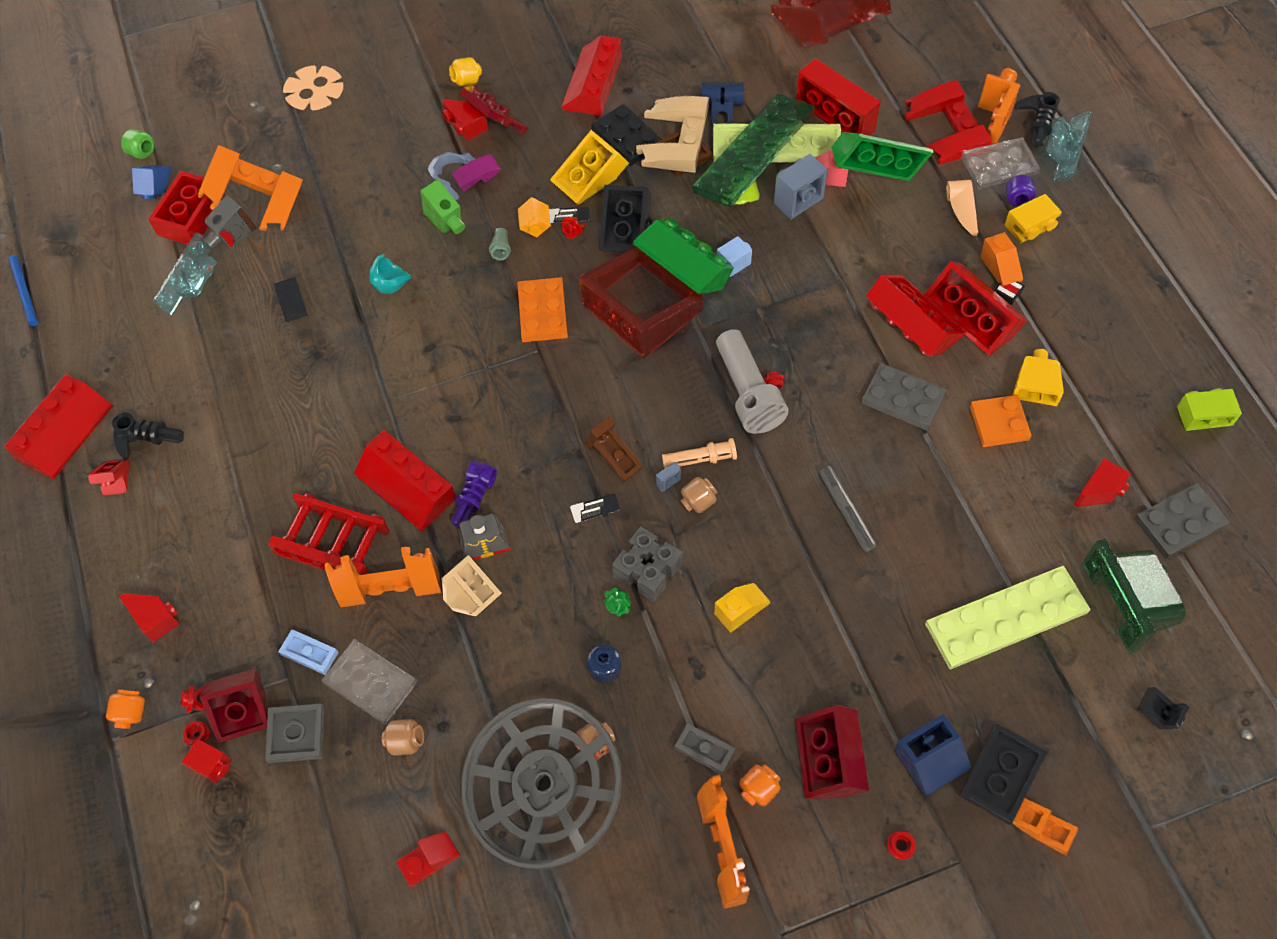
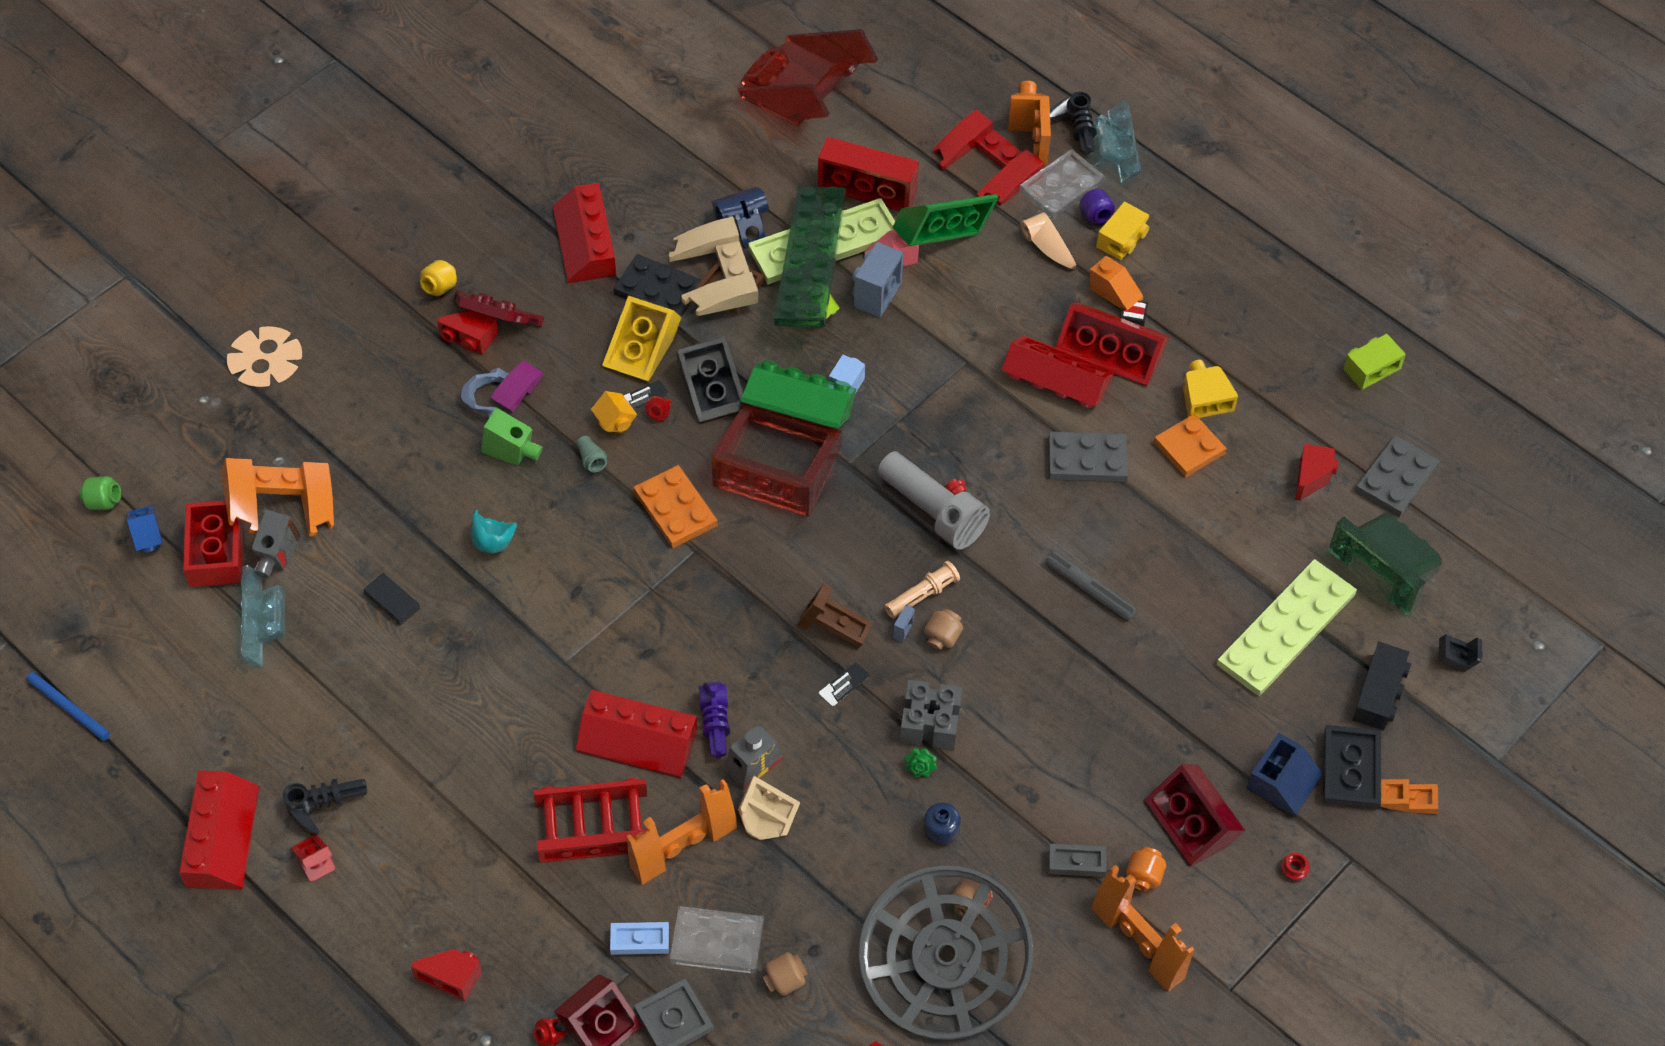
camera: 30 degrees left, 5 degrees down
(740, 605) = (1039, 718): yellow slope -> none
(1069, 710) = (1382, 686): none -> black brick

